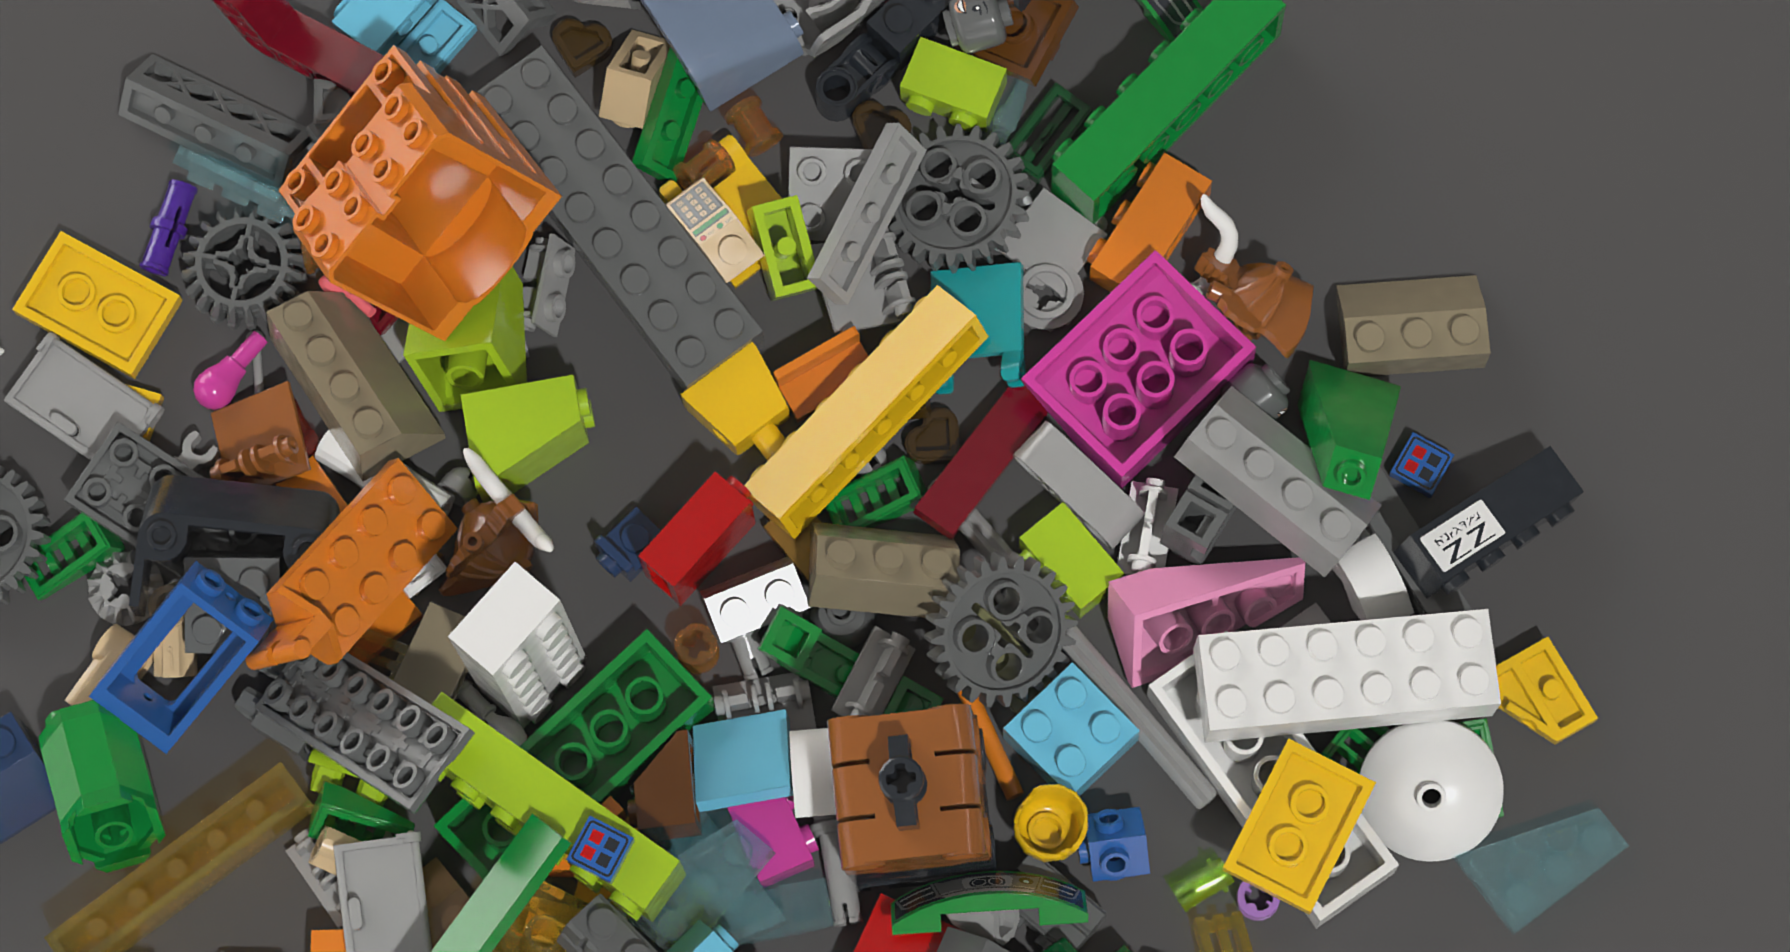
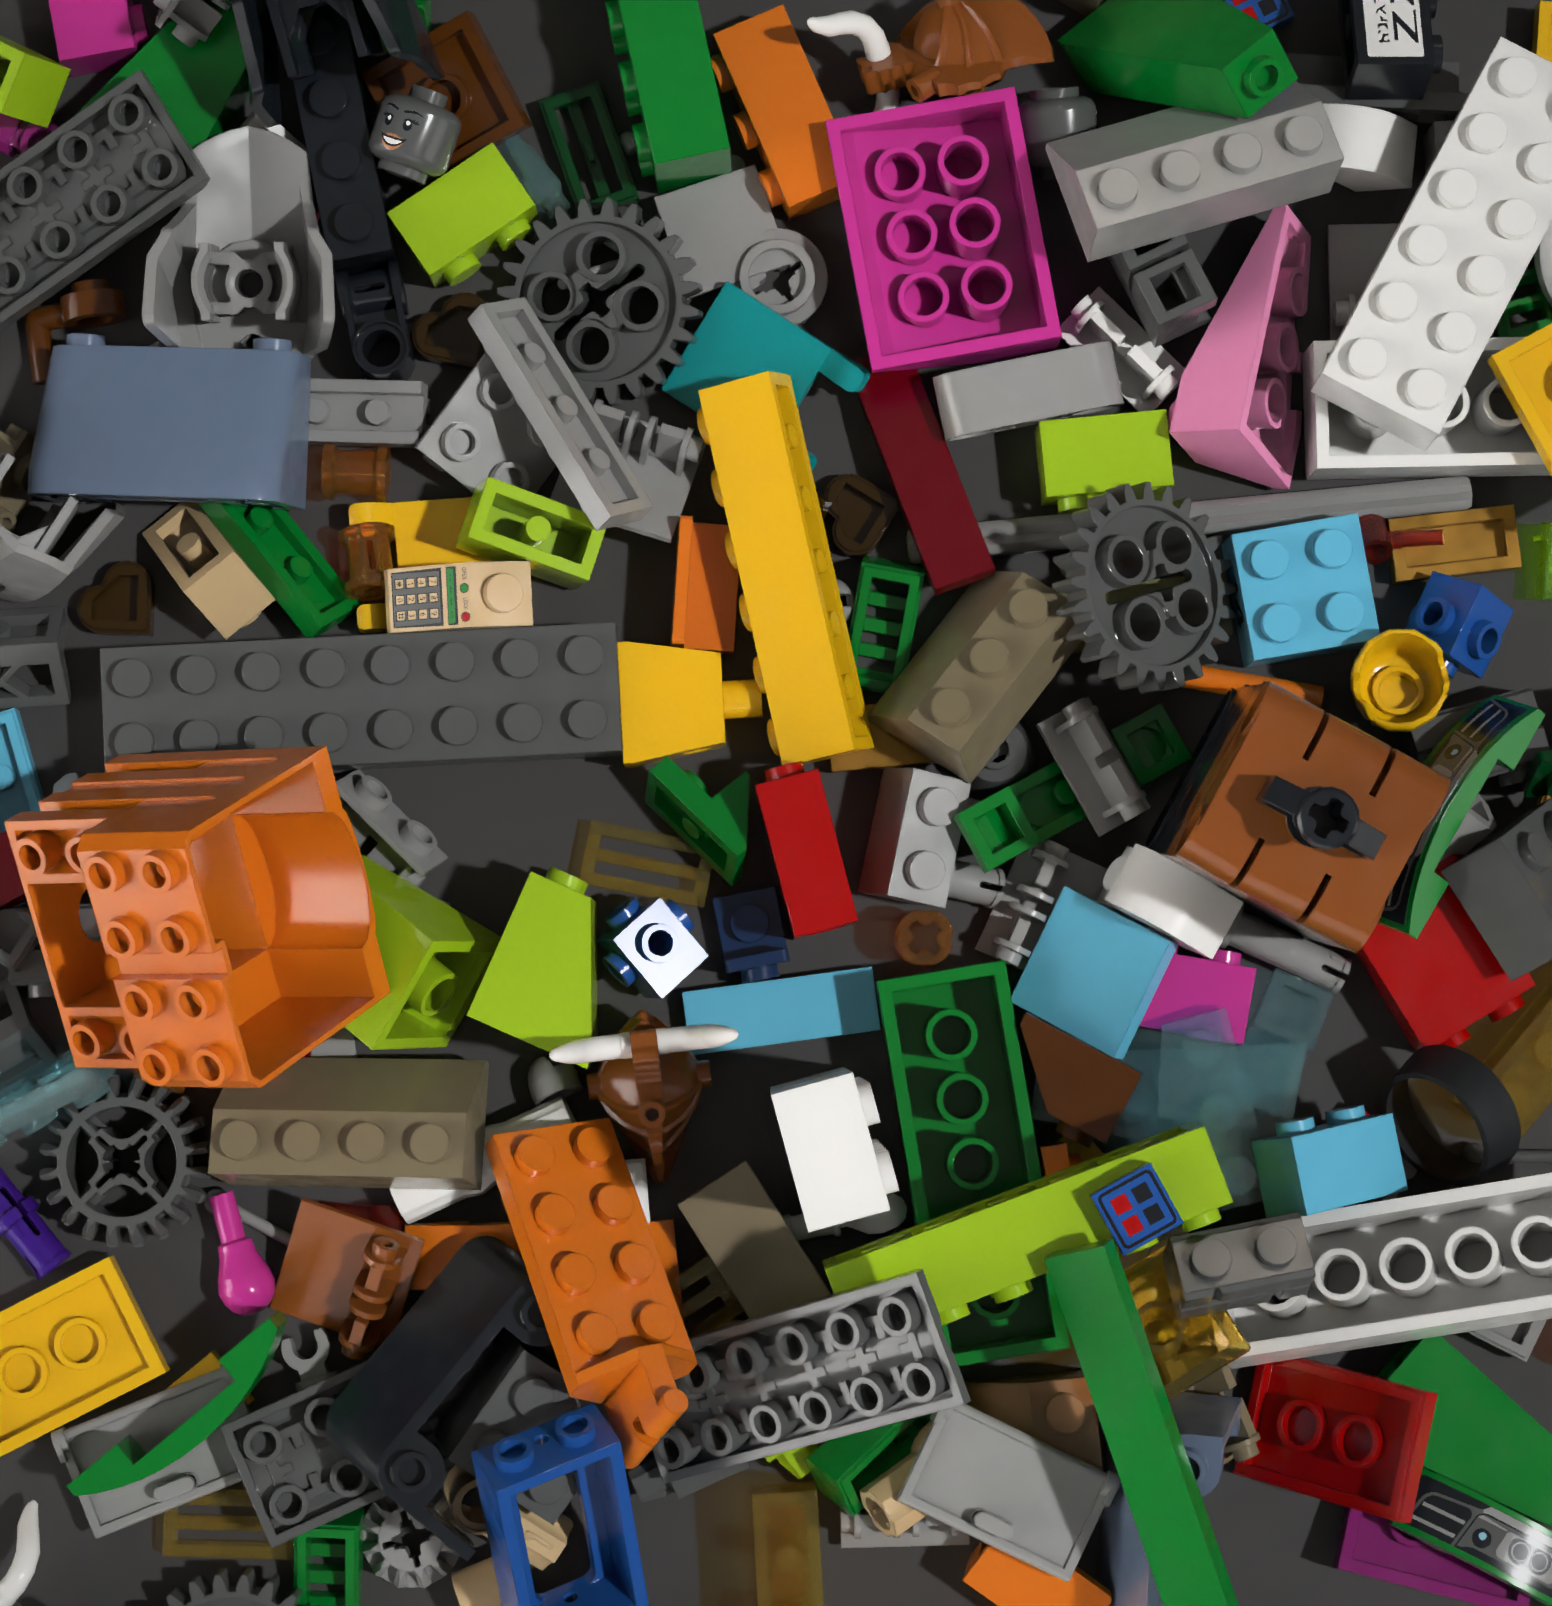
camera: 65 degrees left, 10 degrees up
(43, 441) = (219, 1549): none -> clear yellow tile
(166, 413) = (128, 1461): none -> green slope
(585, 503) = (650, 945): none -> brick
(593, 592) = (788, 1008): none -> medium azure tile
(647, 492) = (594, 853): none -> clear yellow tile
(680, 469) = (709, 825): none -> green slope
(794, 108) = (367, 412): none -> light grey hinge
(1137, 762) = (1380, 542): none -> clear red hand
(1169, 813) = (1474, 544): none -> pearl gold tile

